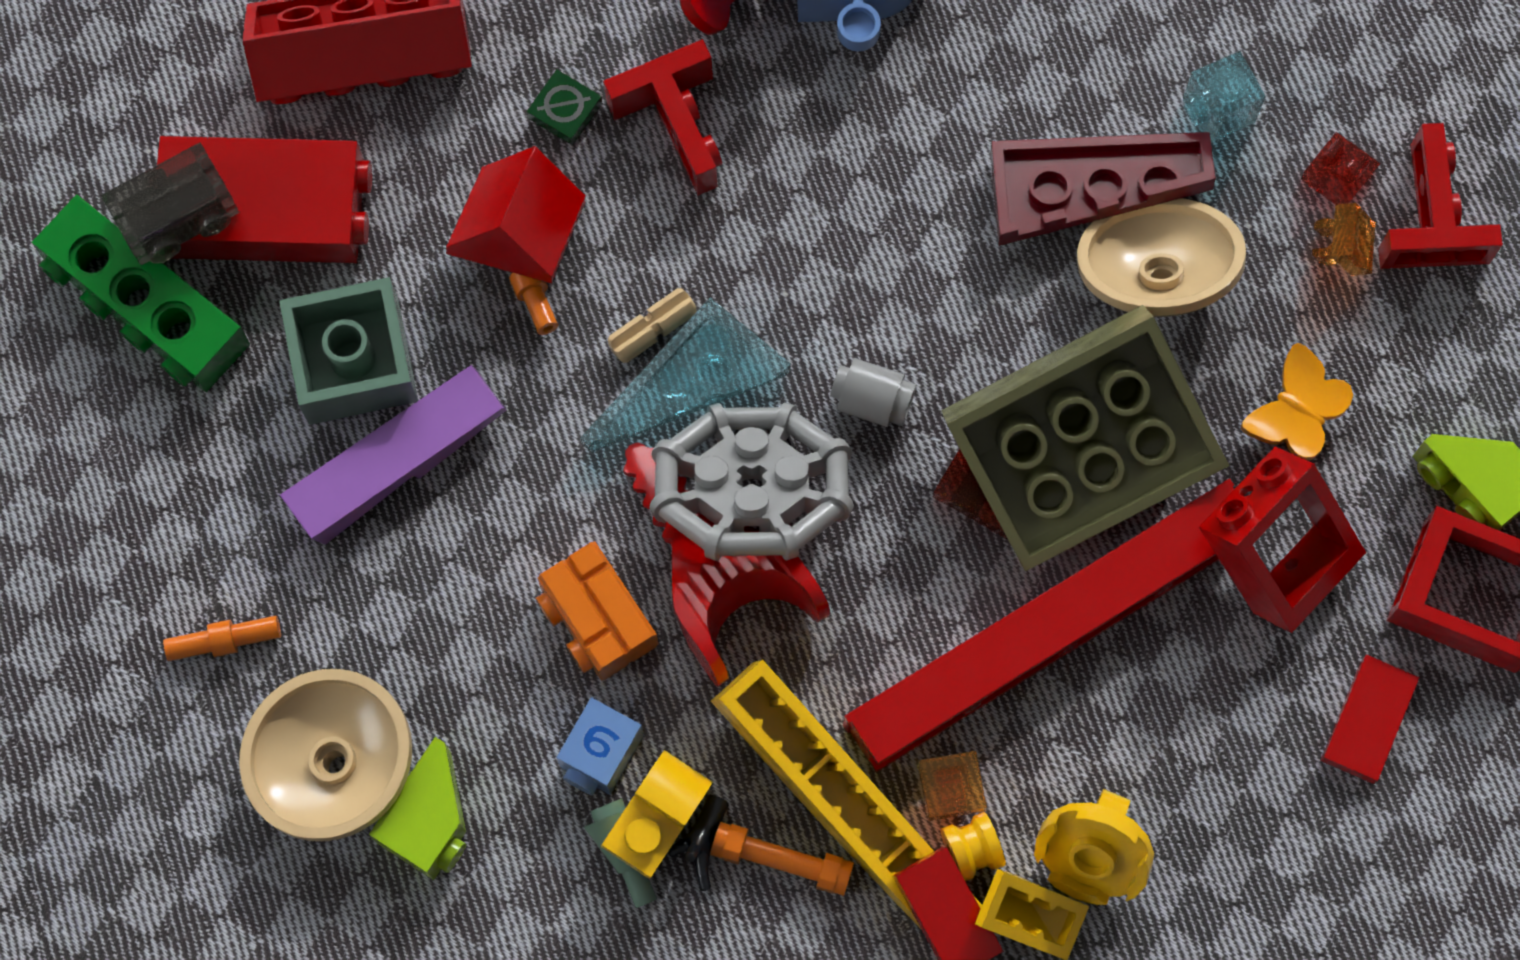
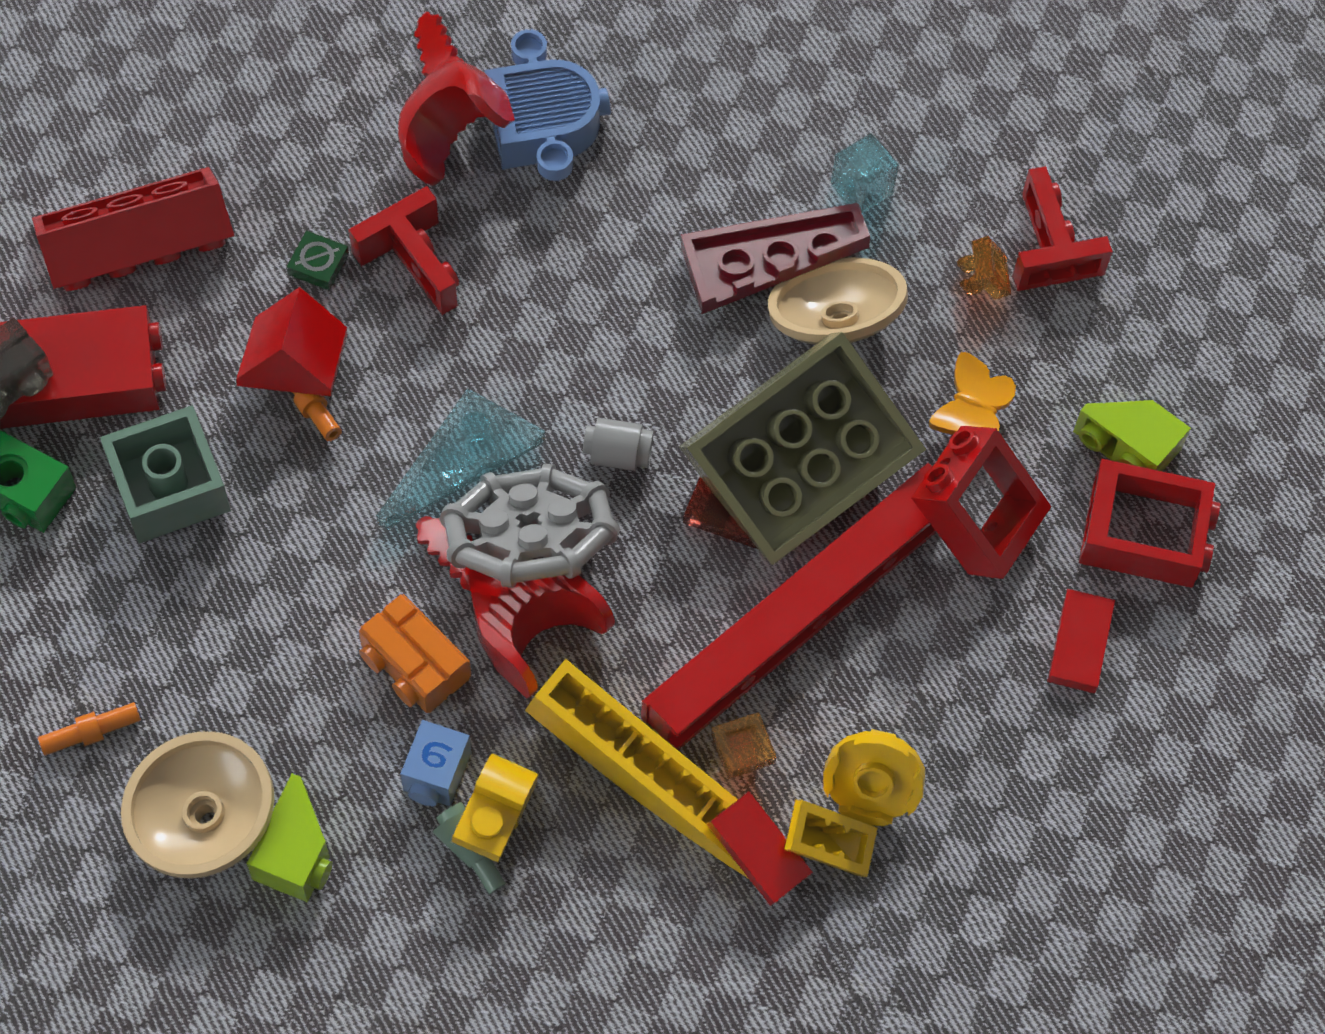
camera: 15 degrees left, 10 degrees down
(392, 454) = (215, 554): medium lavender slope -> none
(661, 319) = (413, 426): tan piece -> none
(699, 840) = (535, 827): black bar -> none
(733, 844) = (565, 826): orange bar -> none
(974, 846) = (772, 790): yellow wheel -> none
(1340, 170) = (969, 218): clear red tile -> none

